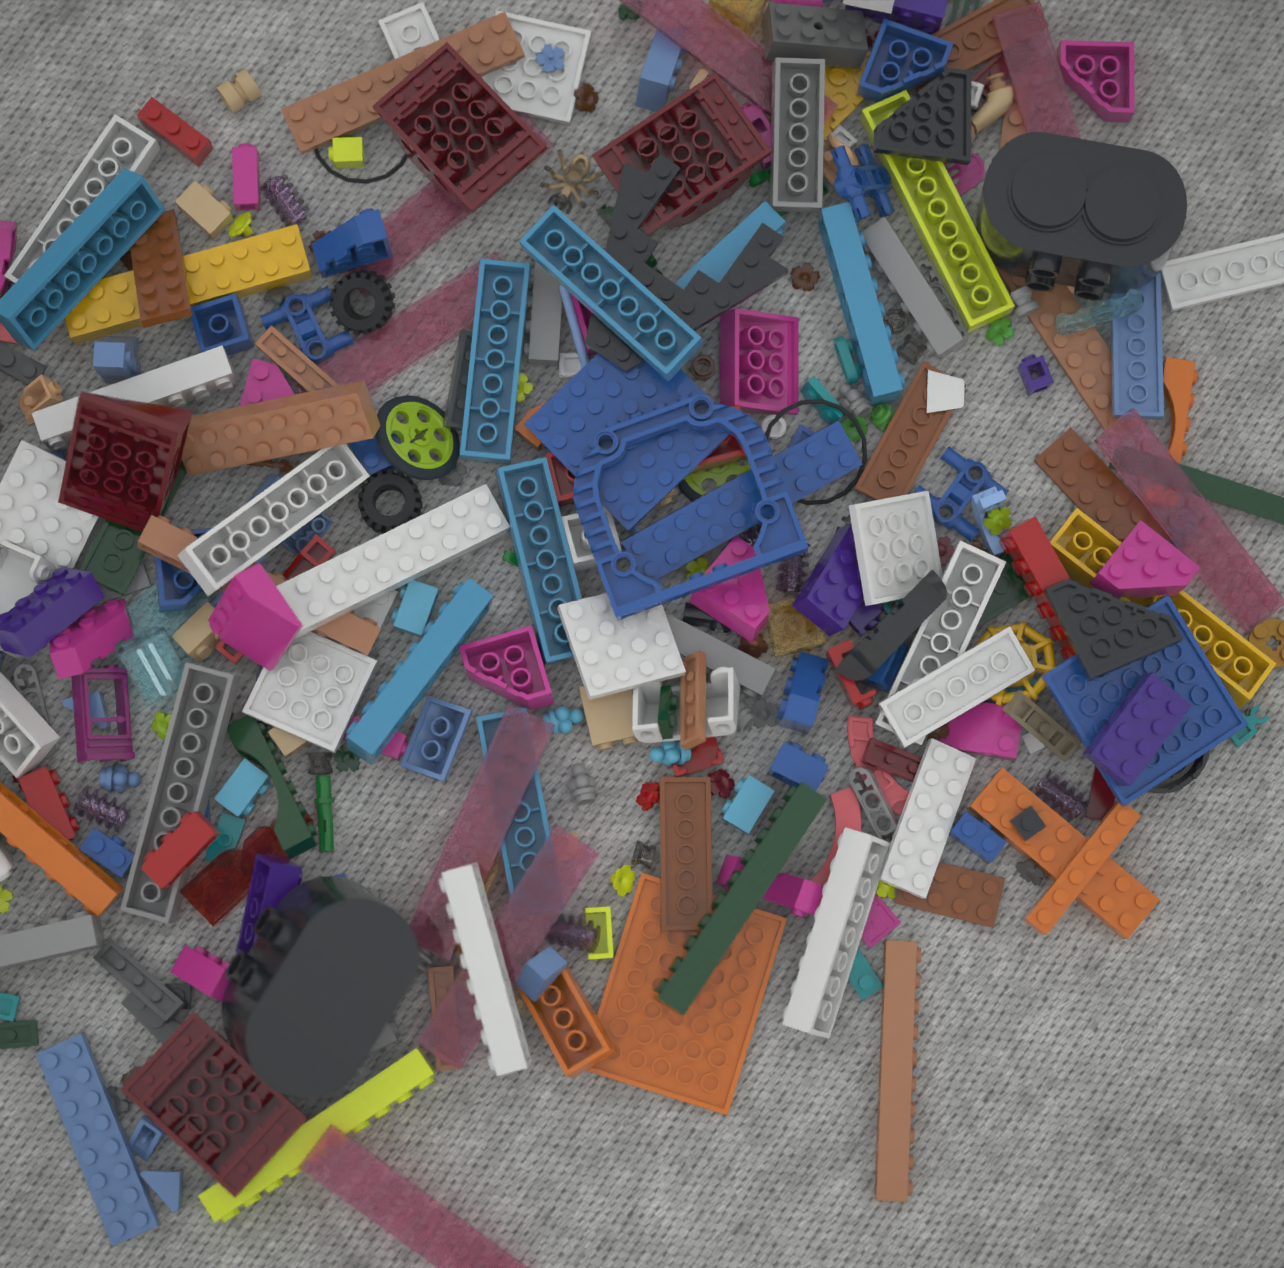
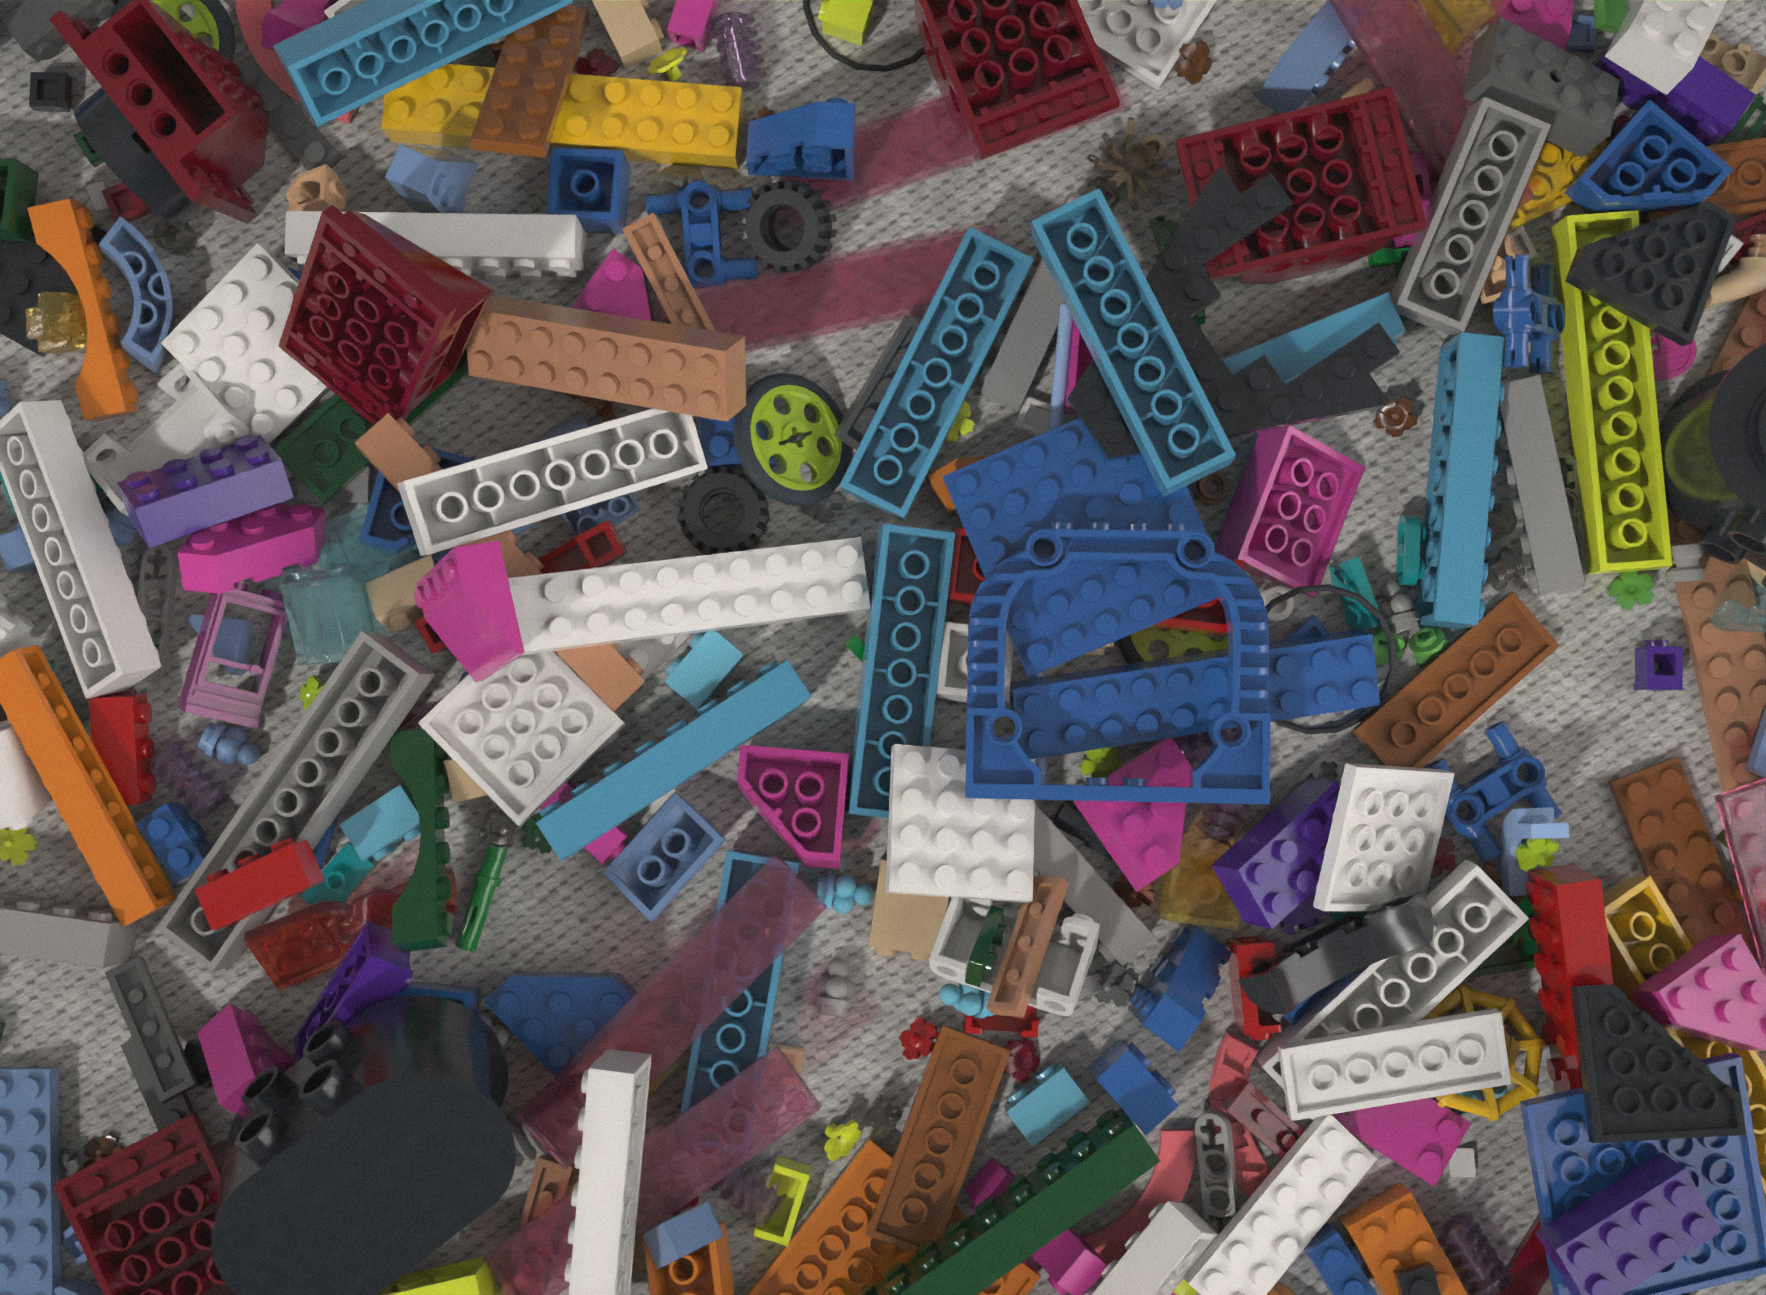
camera: 25 degrees right, 5 degrees up
(194, 244) = (597, 65): none -> dark red plant
(404, 865) = (559, 1010): none -> blue brick
(944, 392) = (1525, 645): white sticker -> none
(1041, 725) = (1487, 1157): dark tan hinge -> none

